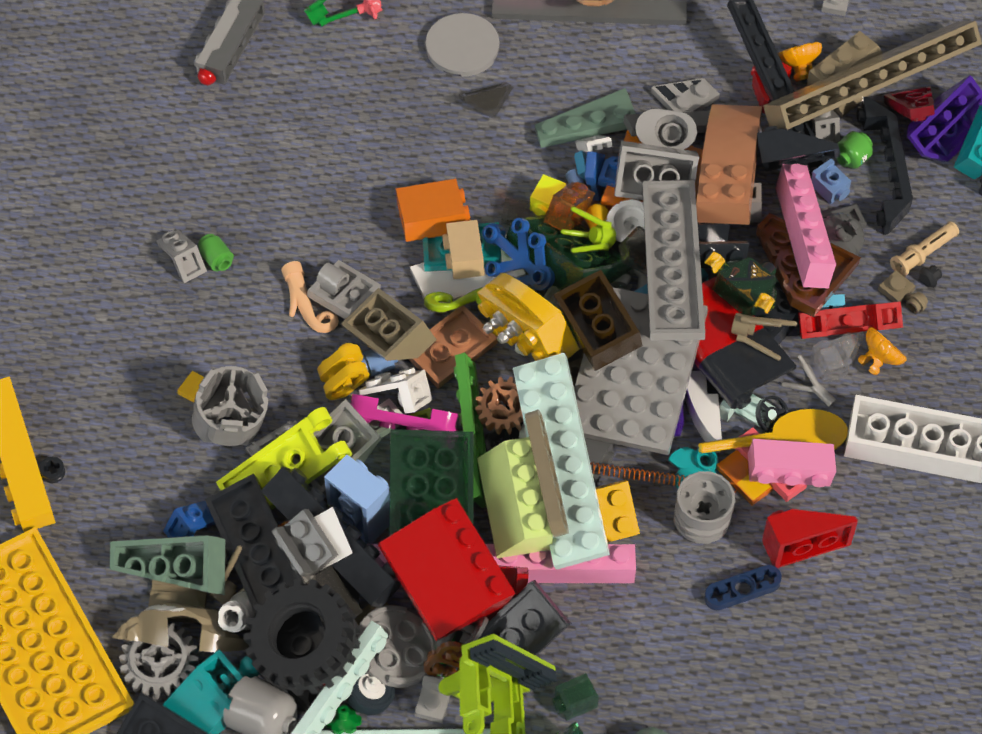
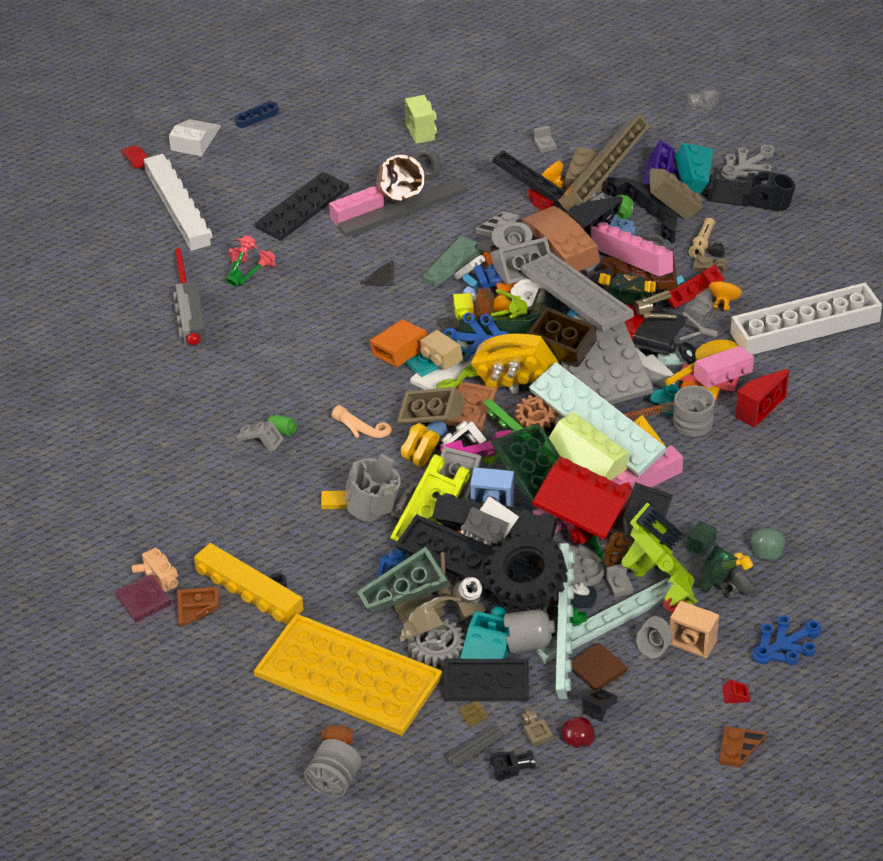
camera: 30 degrees left, 15 degrees down
(341, 288) = (381, 407): light grey plate -> none
(462, 44) = (340, 256): light grey tile -> none
(546, 473) = (575, 405): dark tan beam -> none
(746, 577) = (747, 436): dark blue beam -> none
(912, 103) = (637, 169): dark red wing -> none
(926, 167) = (674, 193): none -> dark tan slope

